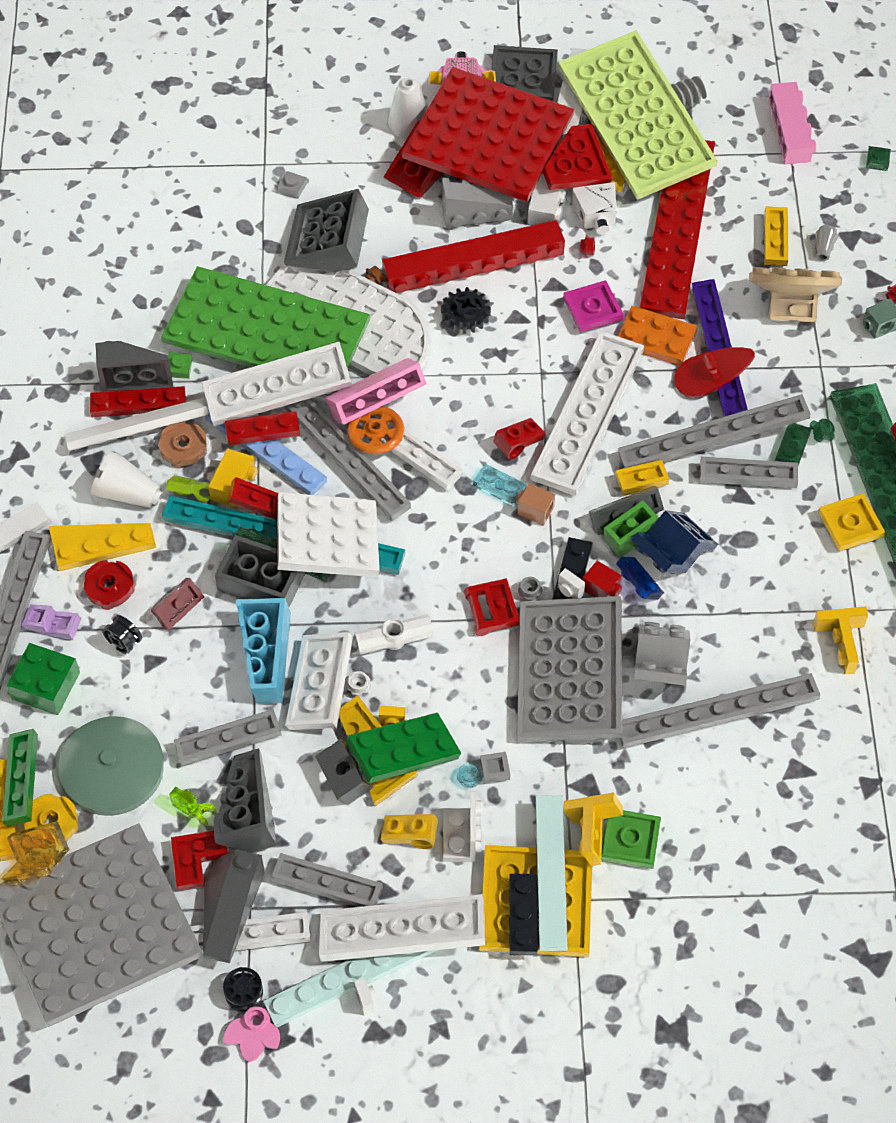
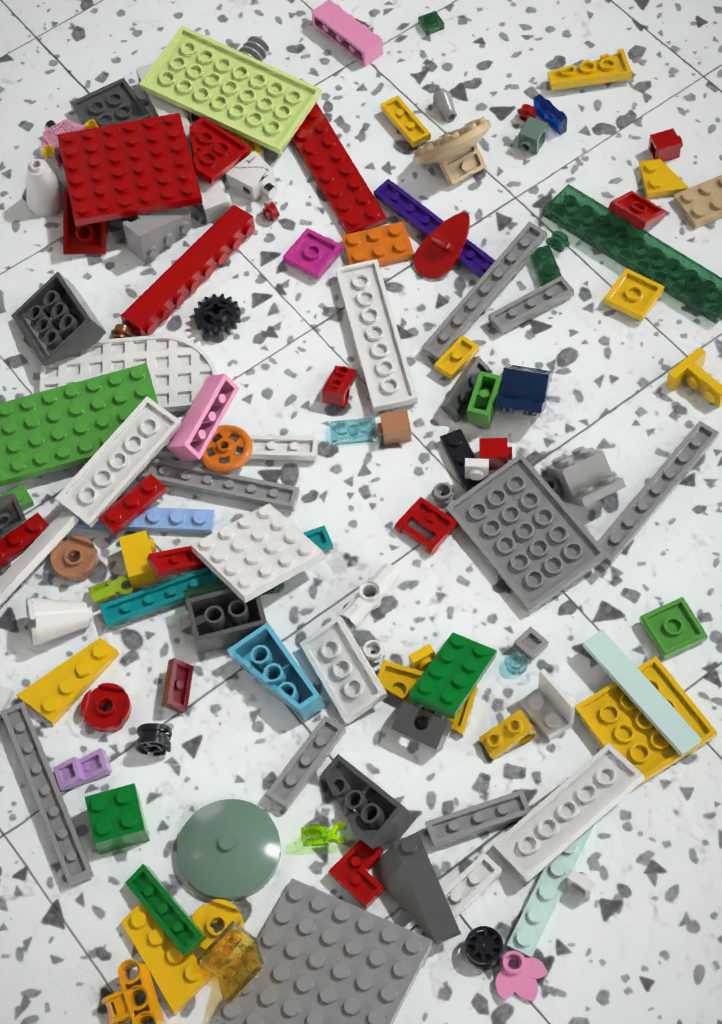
camera: 30 degrees left, 0 degrees up
(523, 914) = (647, 738): black plate -> none
(590, 814) = (632, 628): yellow bracket -> none
(640, 578) = (510, 430): clear blue plate -> none

